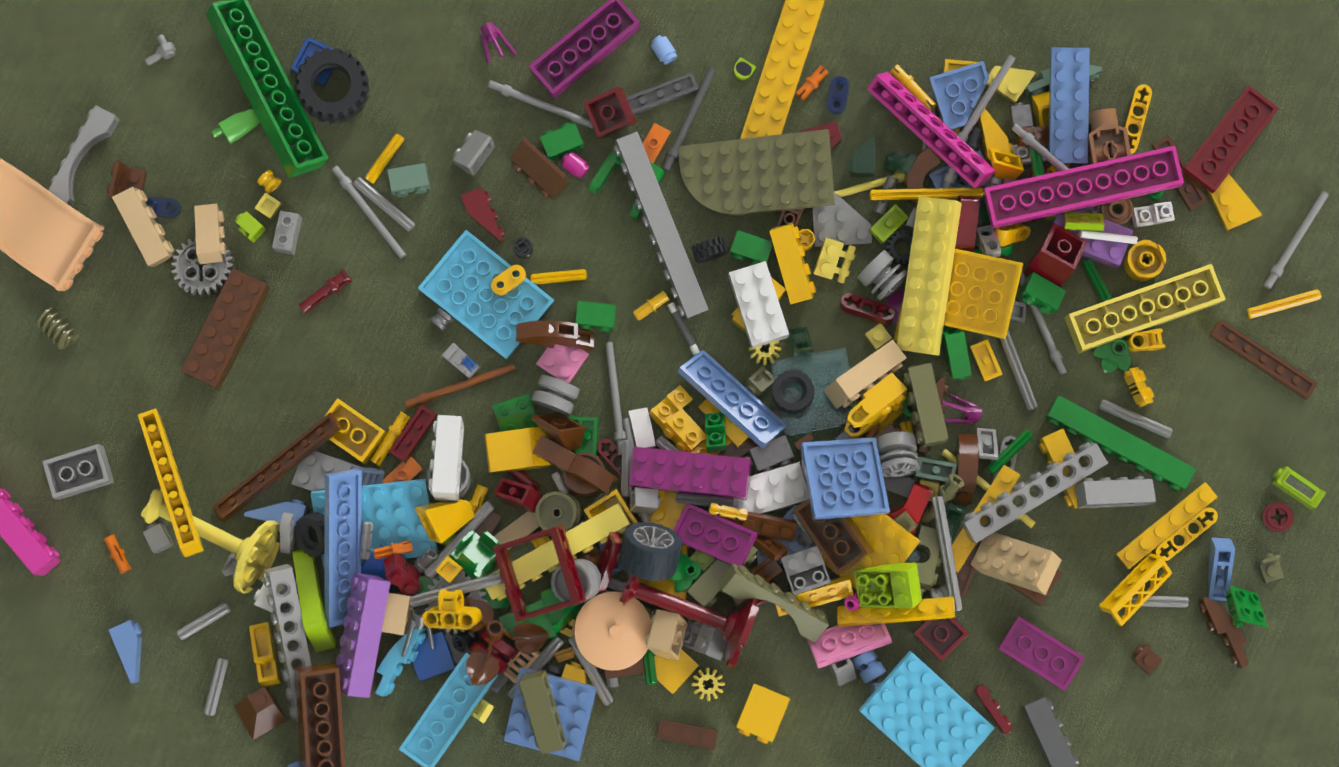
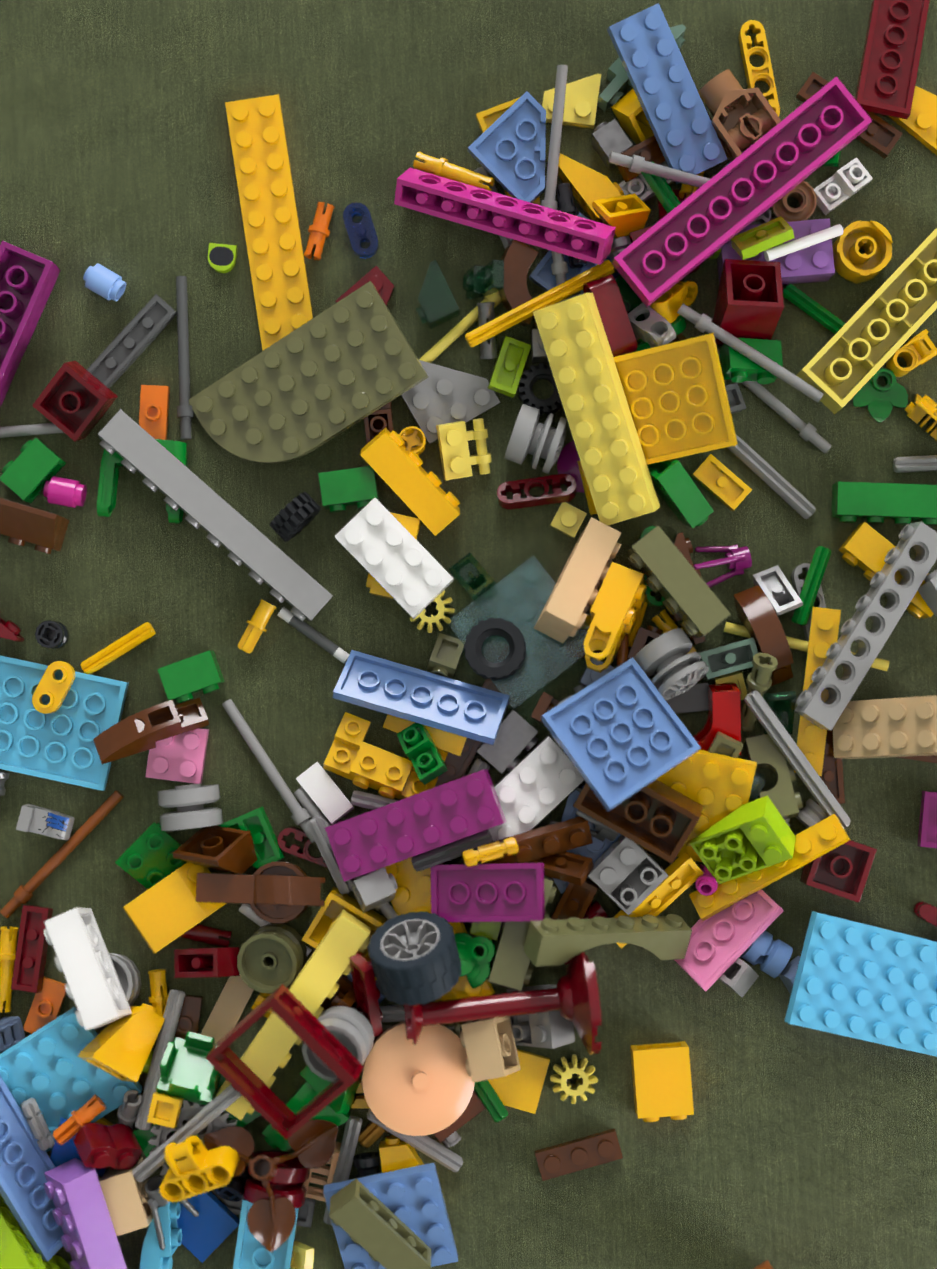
camera: 30 degrees left, 5 degrees up
(1022, 256) = (703, 323): none -> light grey bar

